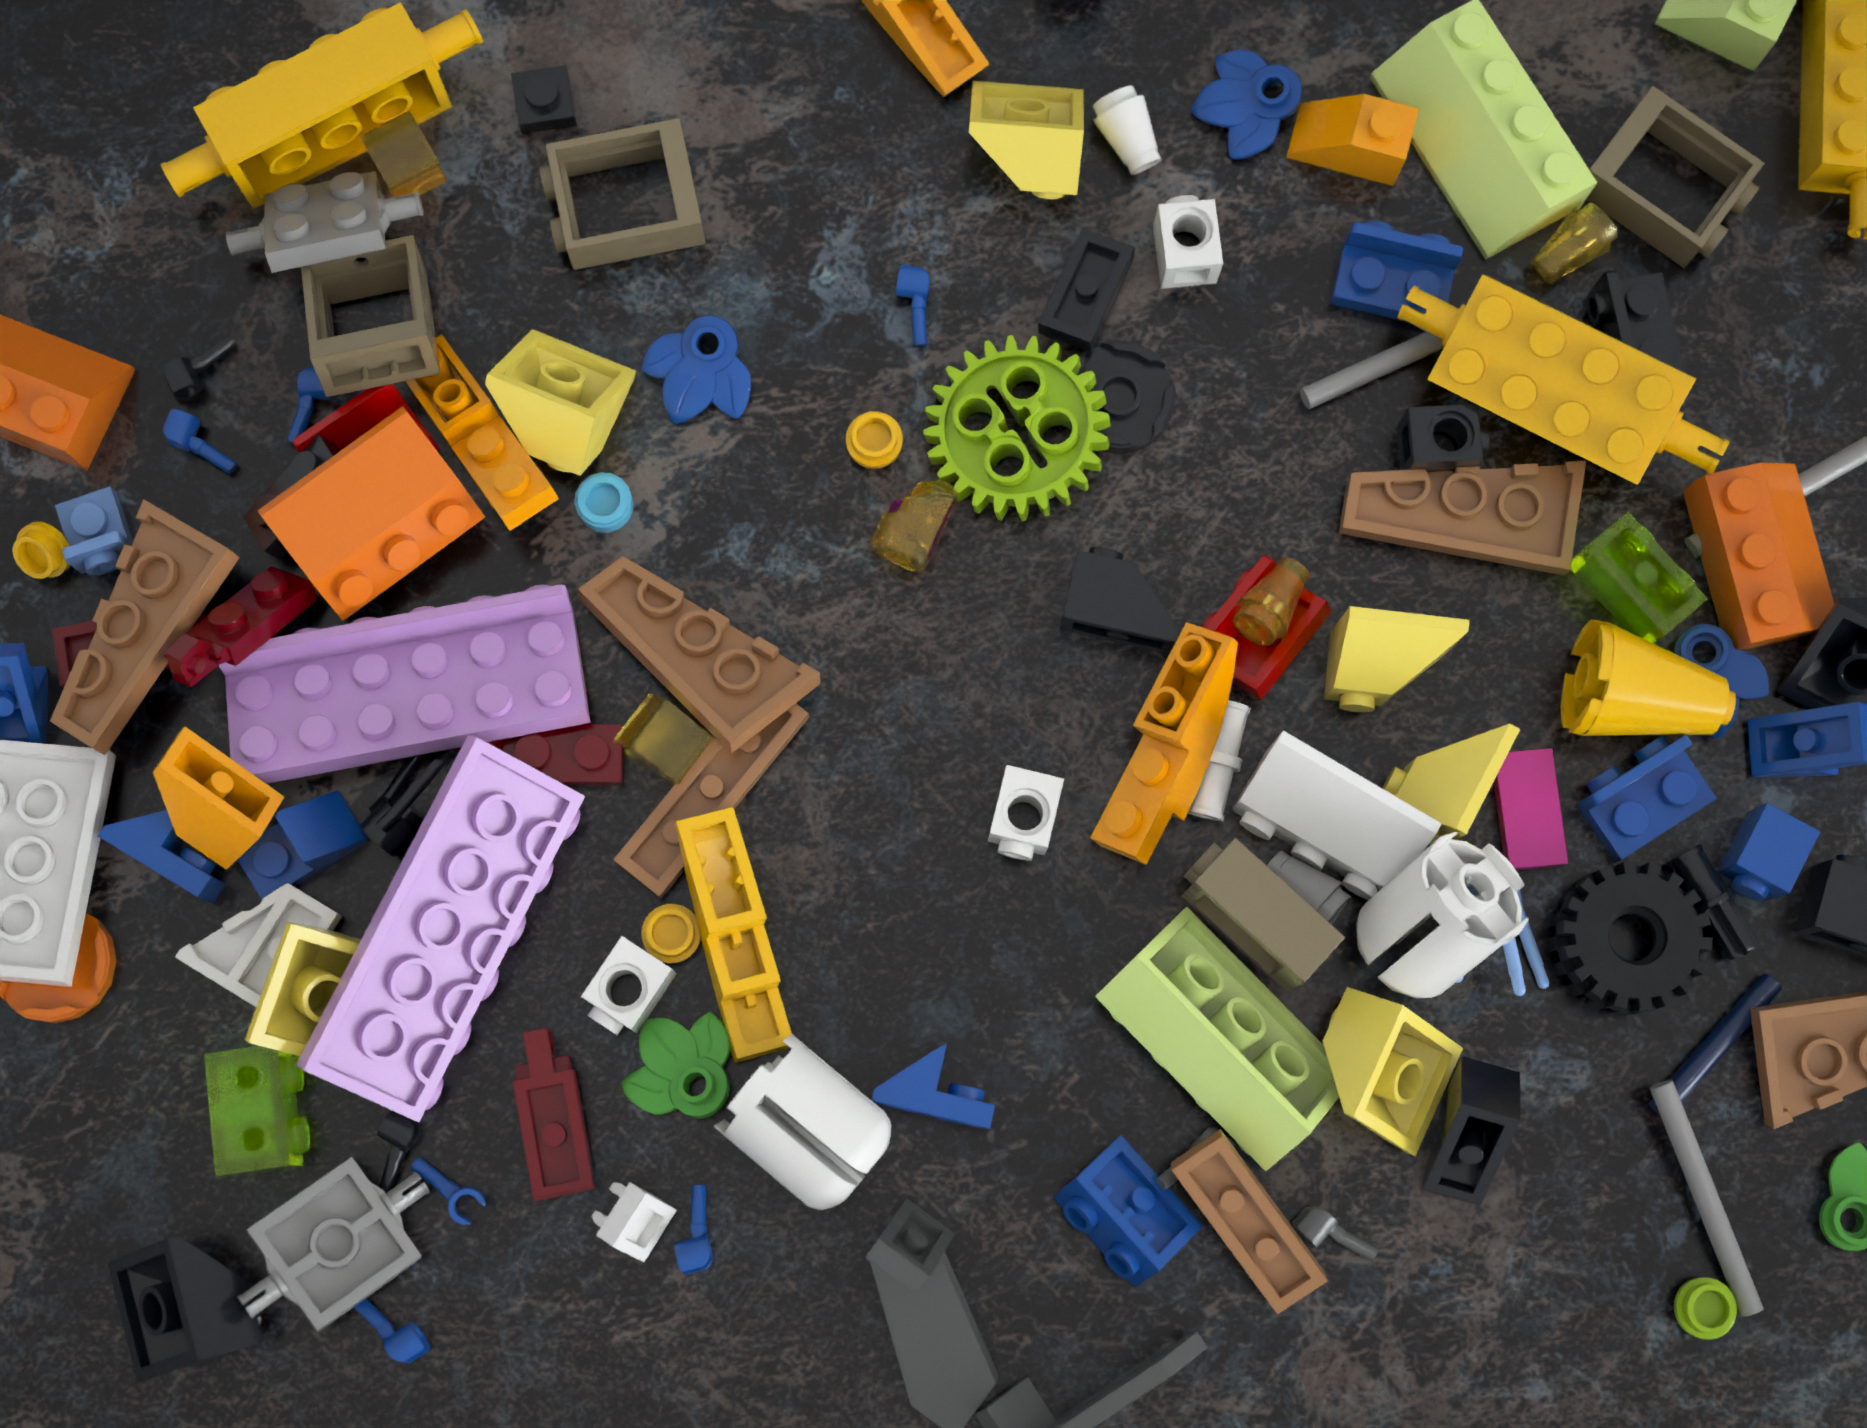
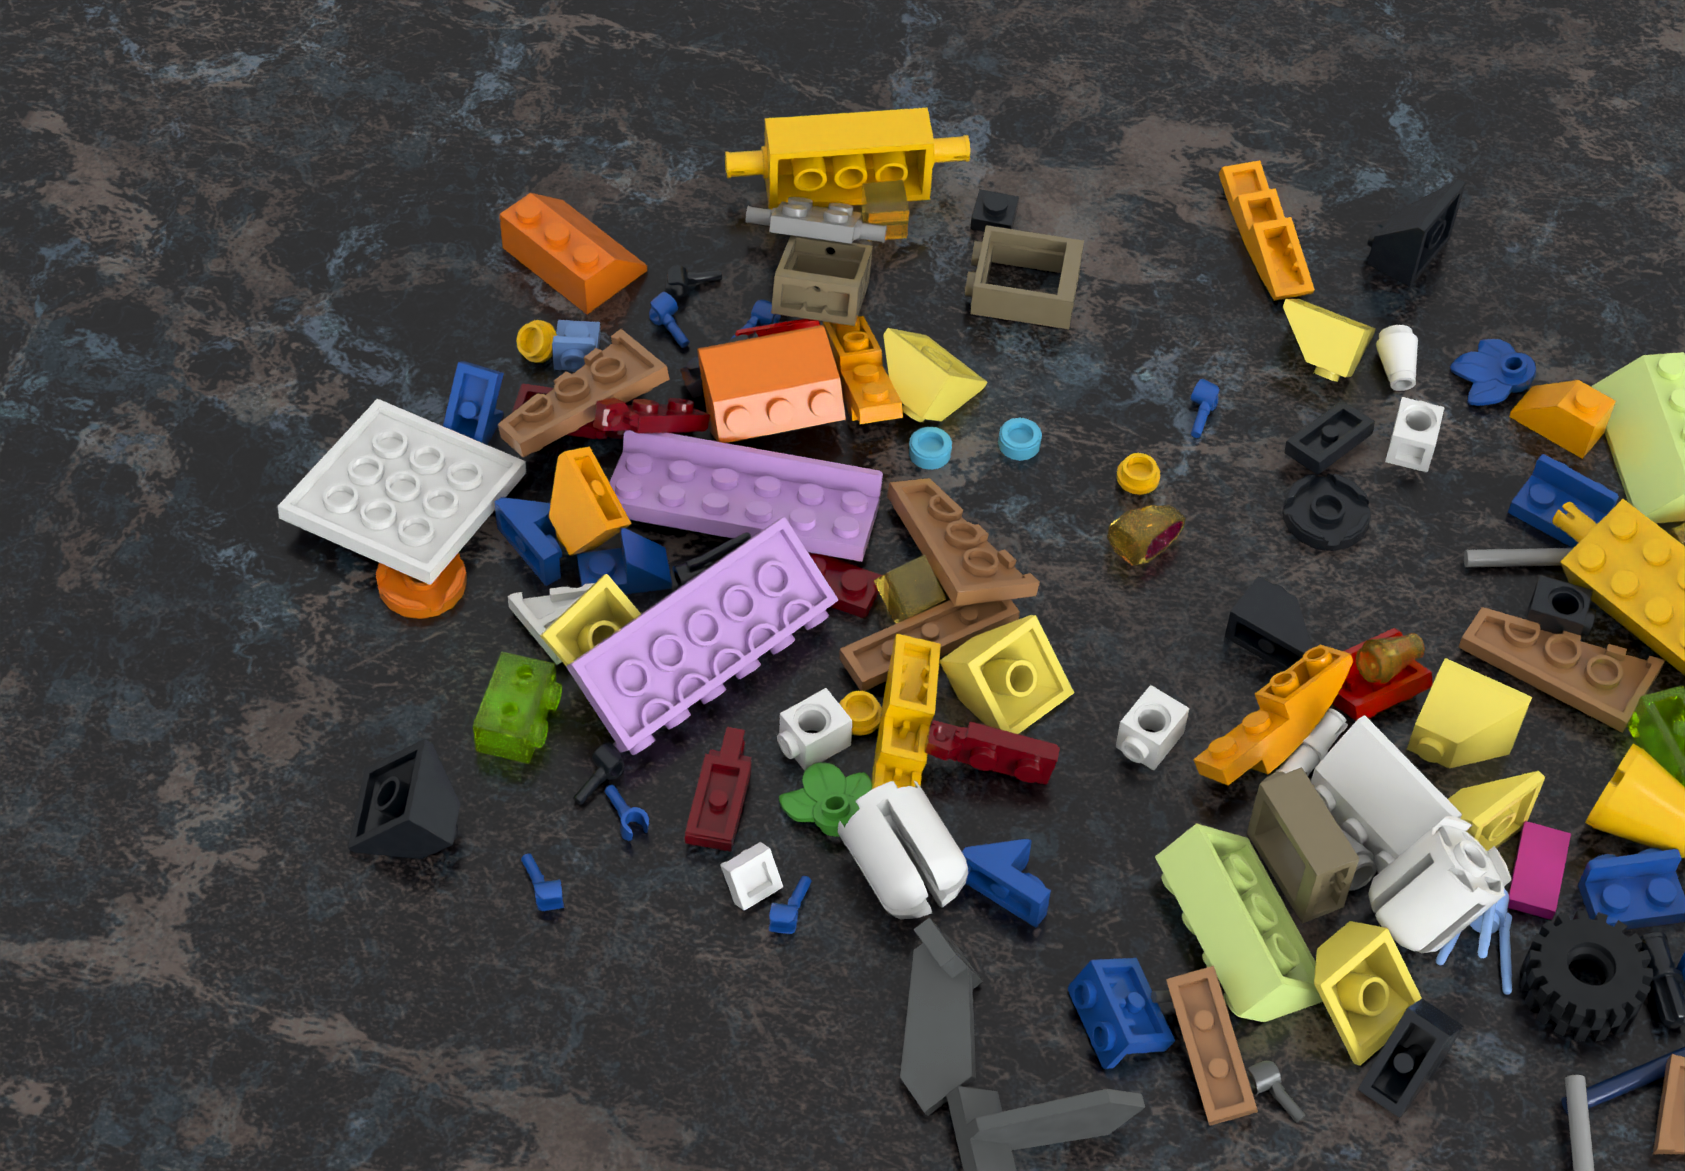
camera: 25 degrees right, 25 degrees down
(334, 1244) = (531, 807): light grey plate -> none
(697, 378) = (1028, 396): blue plate -> none
(709, 442) = (1019, 439): none -> medium azure tile
(829, 812) = (1008, 675): none -> light yellow slope
(845, 932) = (993, 750): none -> dark red hinge
(1060, 400) = (1273, 486): lime gear -> none

